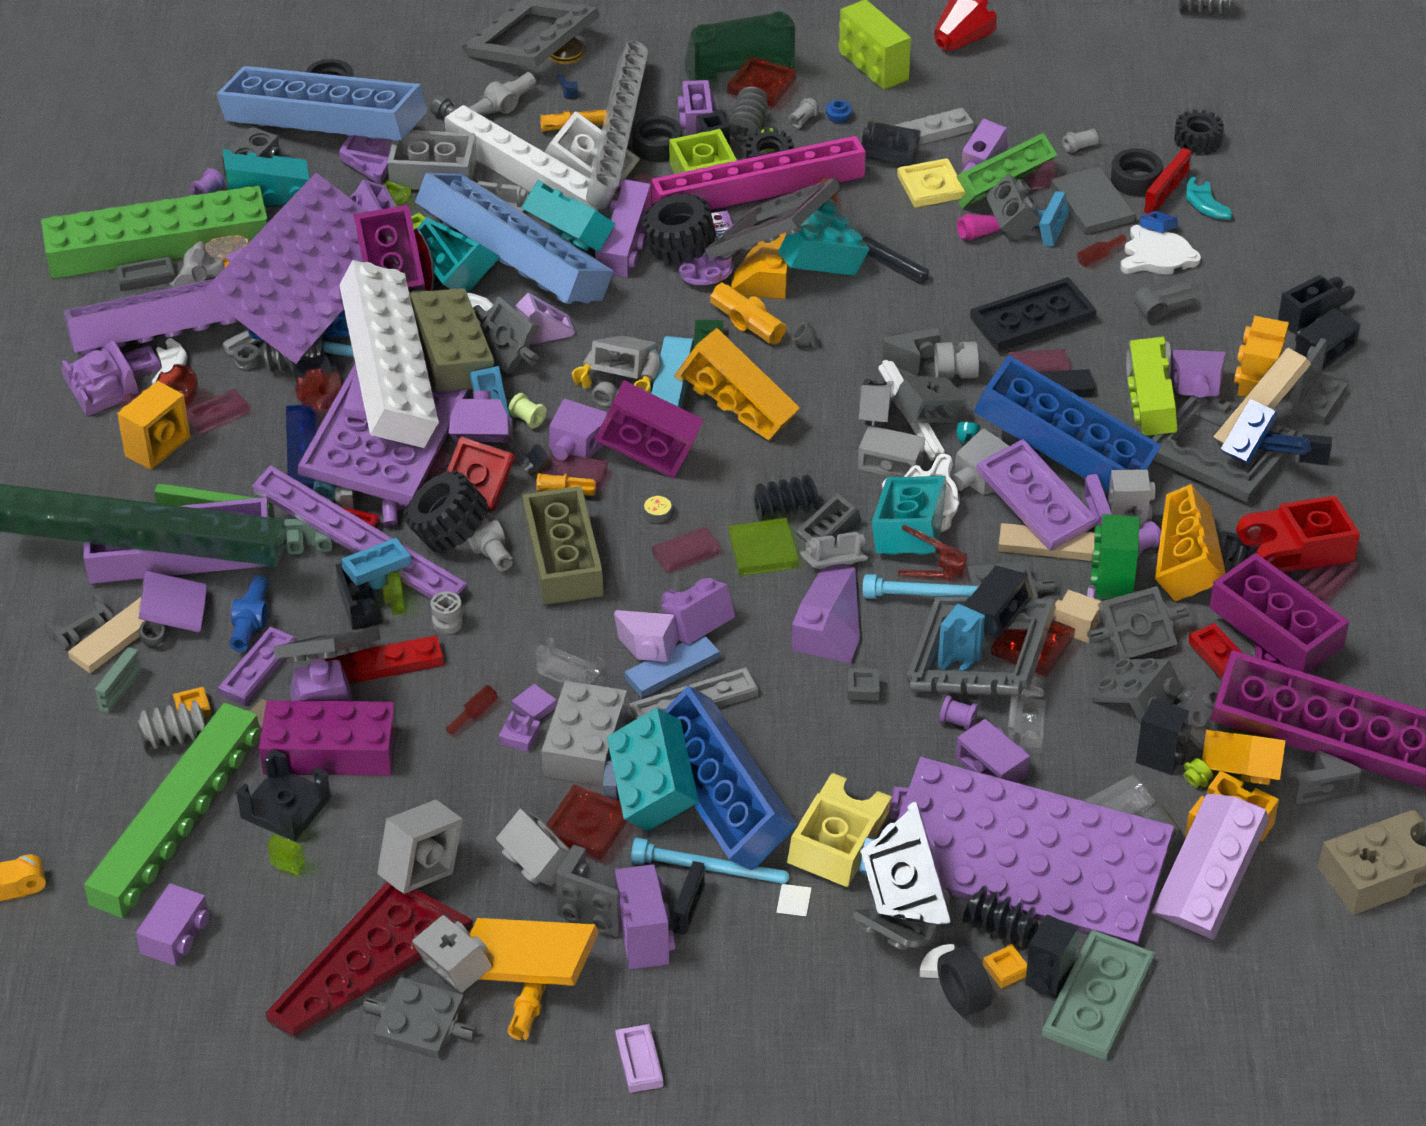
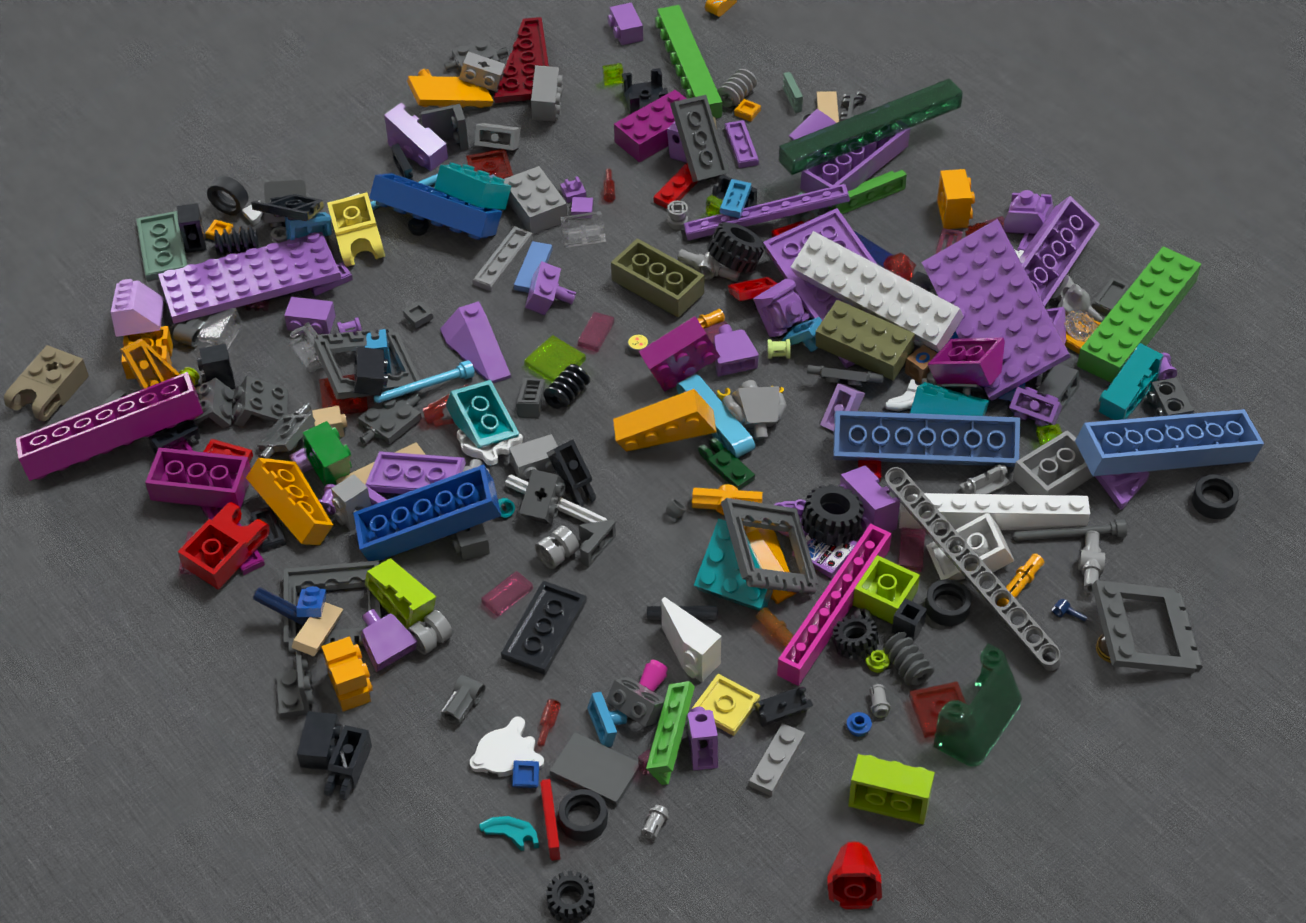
camera: 140 degrees right, 5 degrees up
(249, 613) = (771, 155): blue pin -> none
(536, 460) = (736, 320): black plate -> none
(568, 217) = (918, 464): teal wedge -> none
(639, 1058) = (361, 100): lavender tile -> none
(647, 634) = (560, 256): lavender slope -> none
(694, 102) = (945, 635): medium lavender brick -> none
(823, 553) = (507, 372): light grey hinge -> none
(920, 210) = (691, 640): none -> white slope
(1076, 381) = (476, 587): black tile -> none
(1320, 450) = (264, 636): black tile -> none

